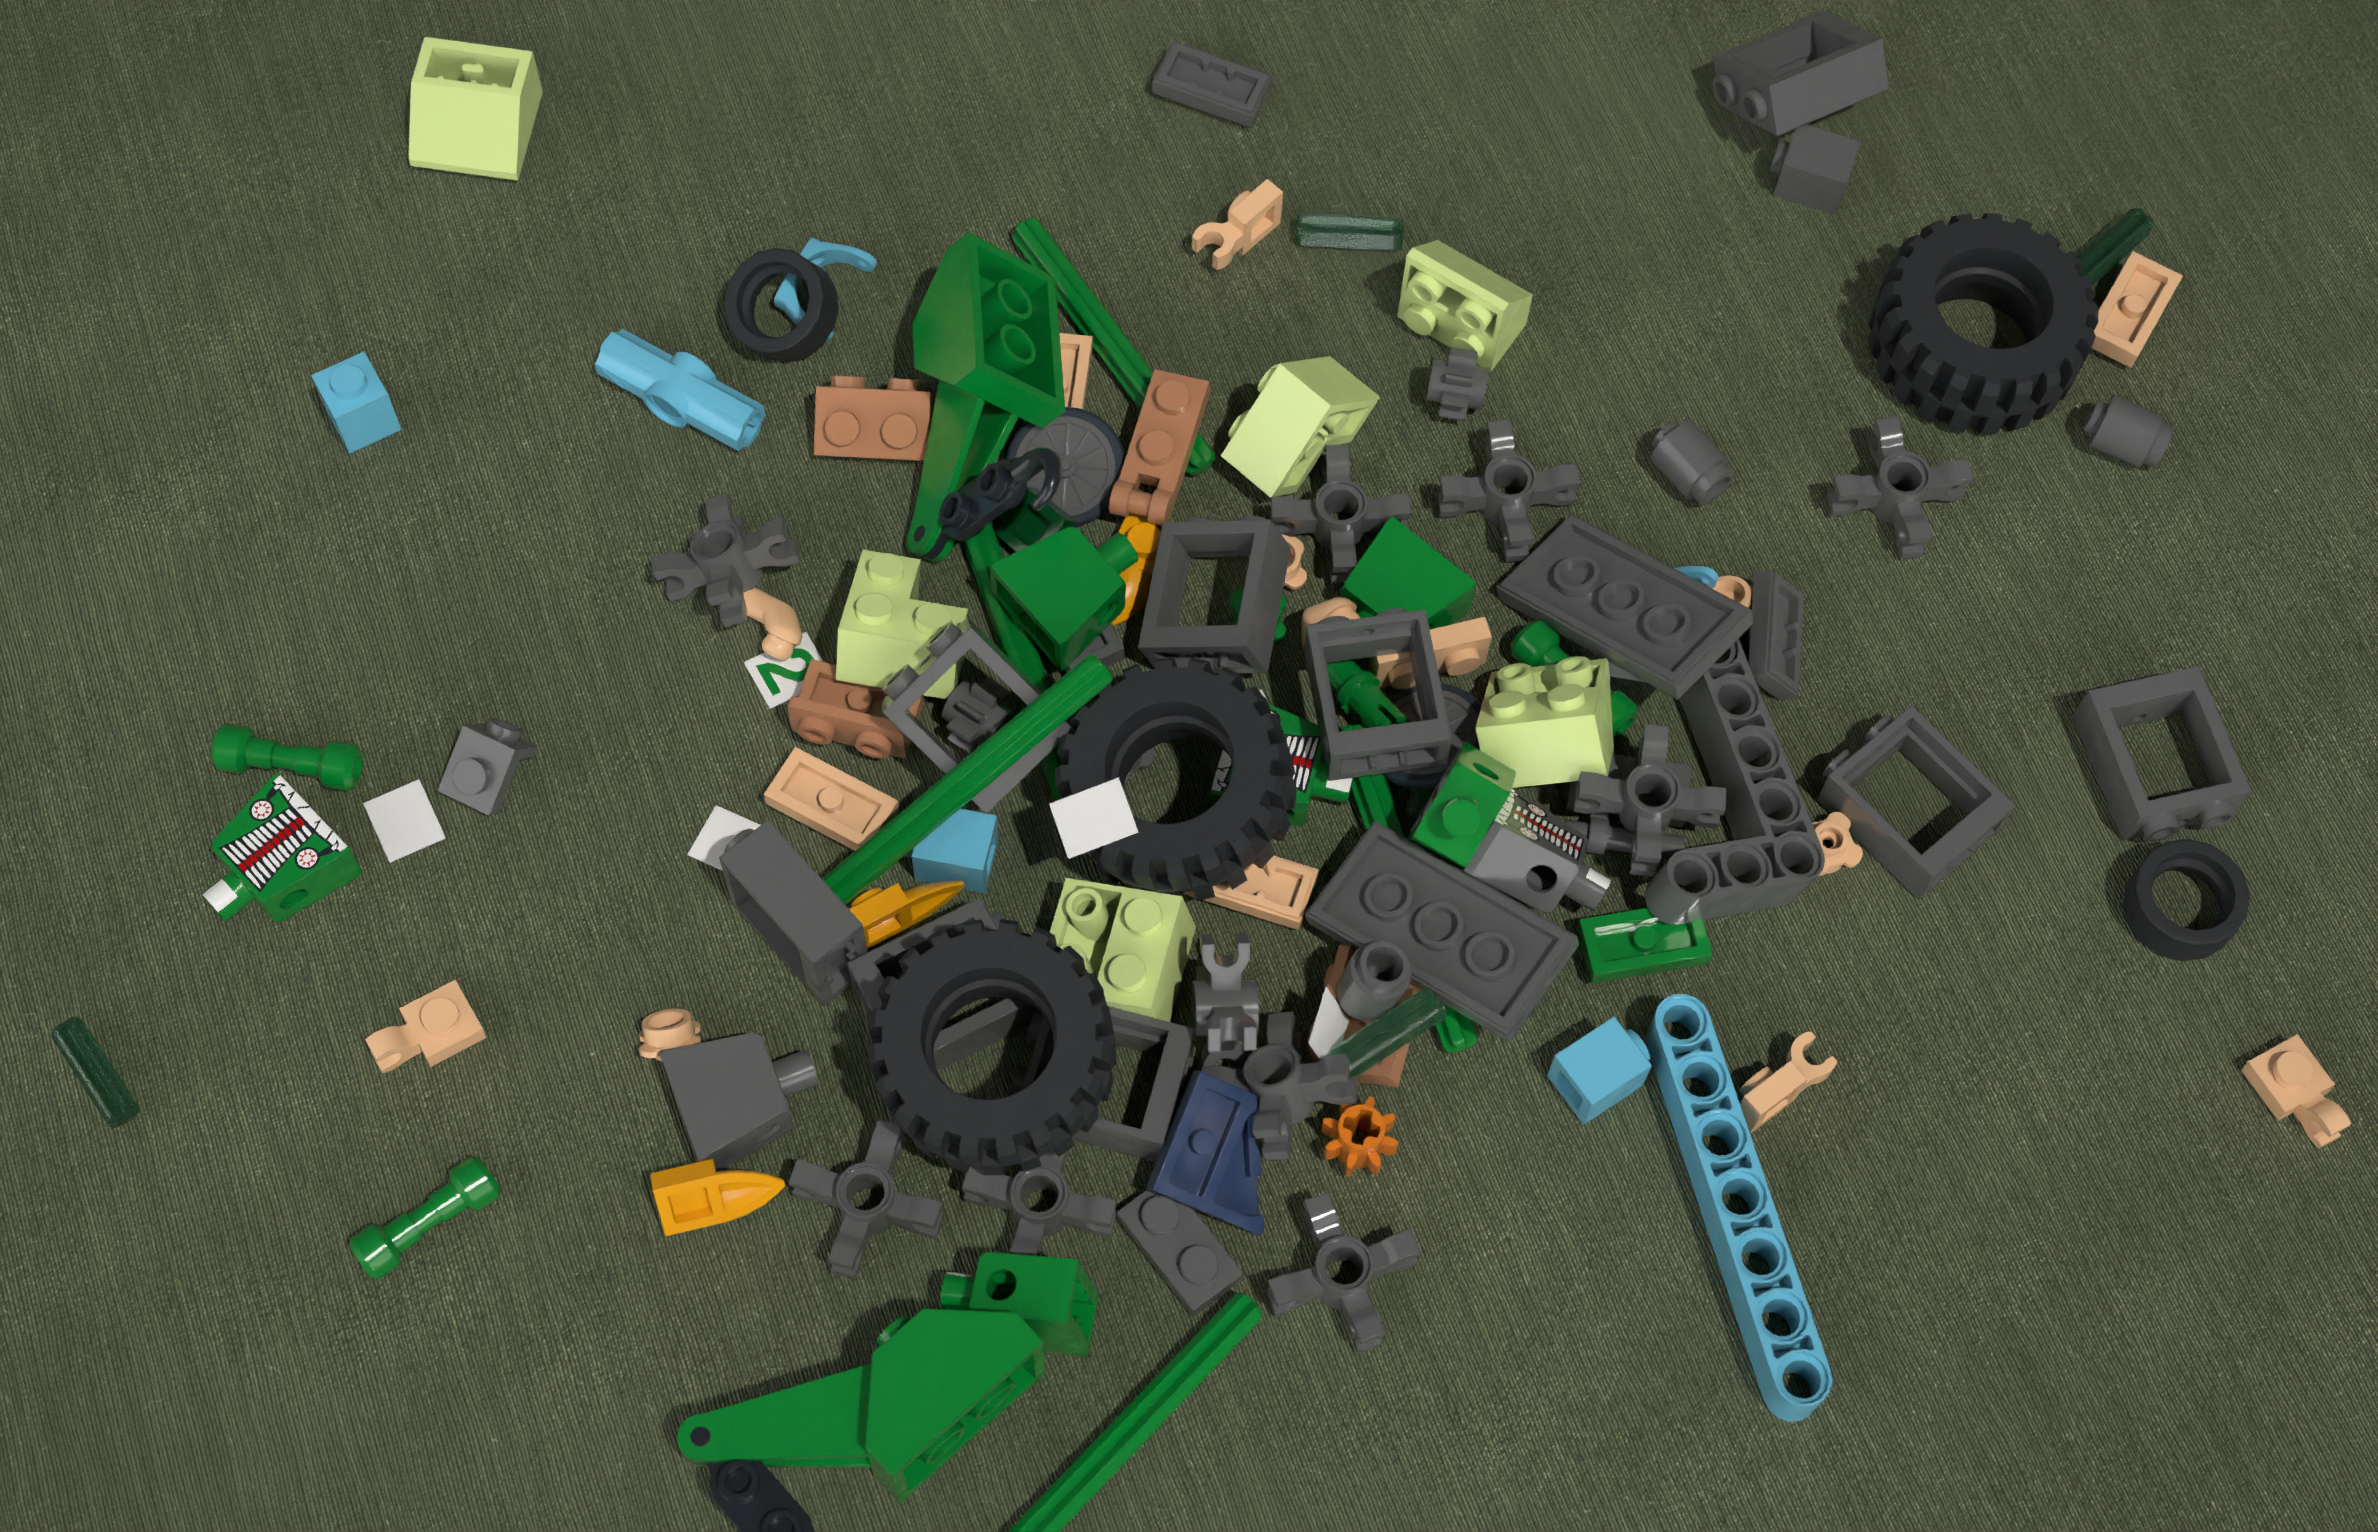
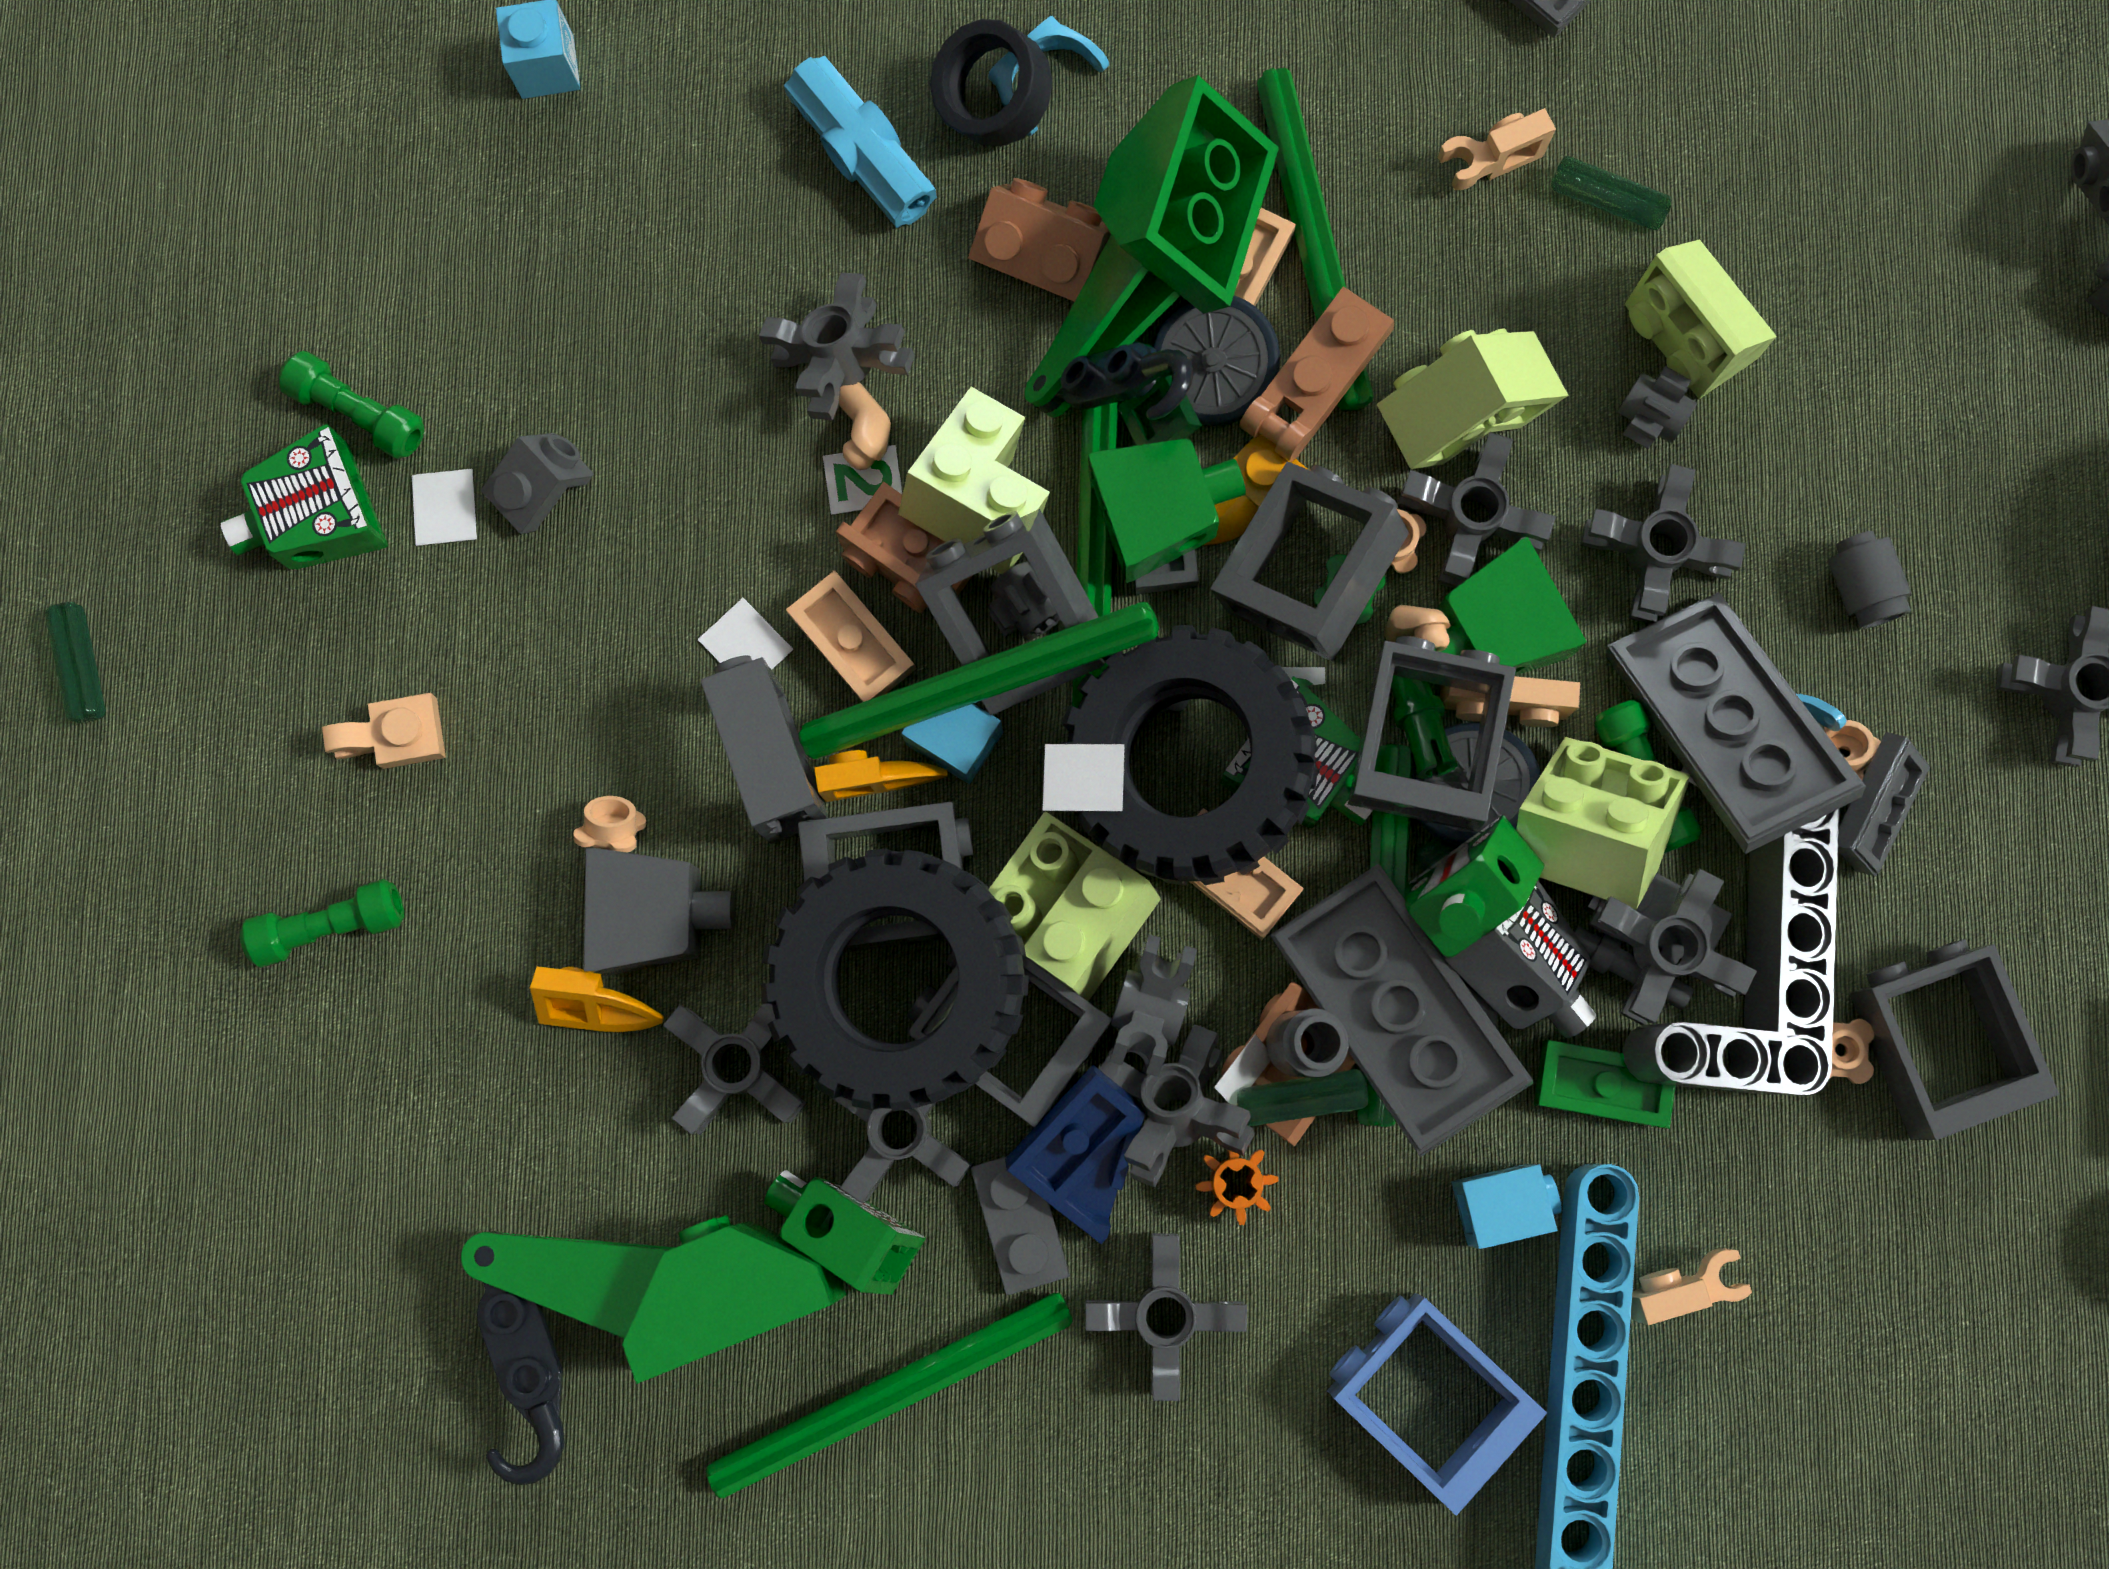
camera: 30 degrees right, 15 degrees up
(1628, 1207) = (1484, 1448): none -> medium blue window

